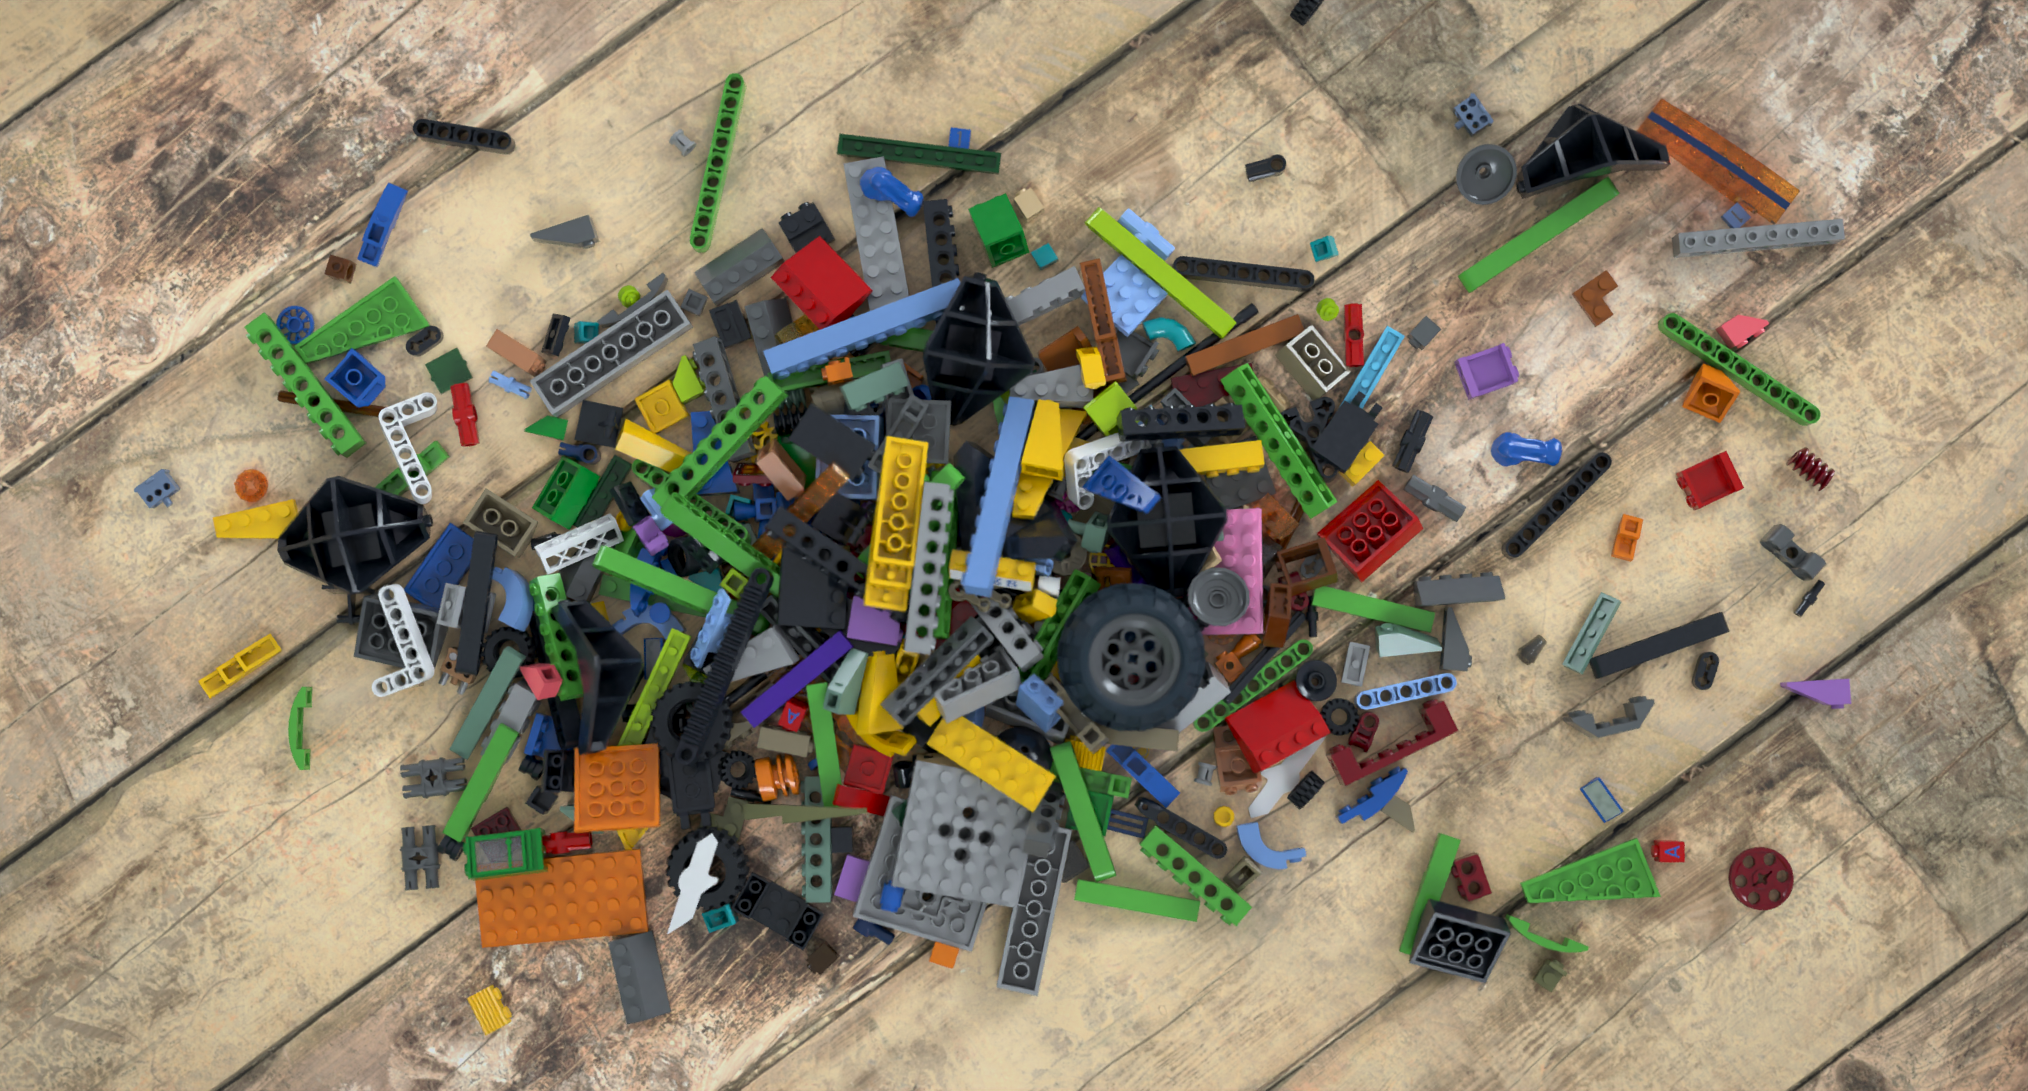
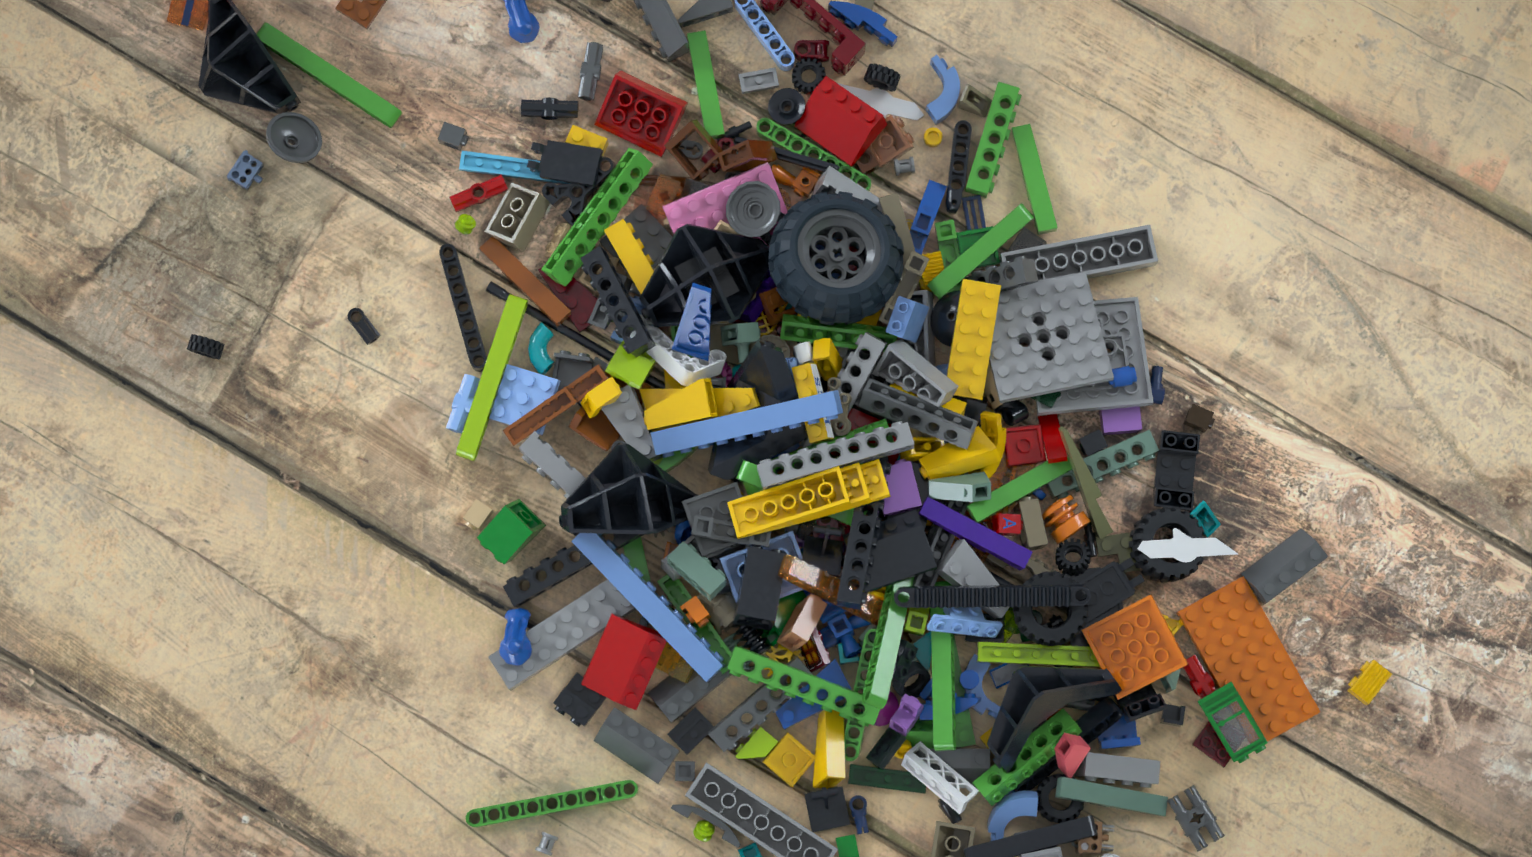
camera: 120 degrees left, 5 degrees down
(411, 866) = (1266, 810): dark grey pin -> none
(451, 847) = (1247, 775): black wheel -> none
(481, 783) = (1182, 771): bright green slope -> none
(532, 767) = (1148, 735): black wheel -> none
(566, 492) = (899, 811): green slope -> none
(654, 508) = (883, 719): light blue piece -> none
(919, 153) = (471, 630): dark green plate -> none
(944, 955) = (1150, 318): orange panel -> none
(959, 138) = (443, 600): blue tile -> none
(1044, 256) = (517, 483): teal slope -> none
(1324, 248) = (412, 249): teal slope -> none
(1399, 640) = (723, 50): slope -> none
(1487, 371) = (463, 71): medium lavender panel -> none

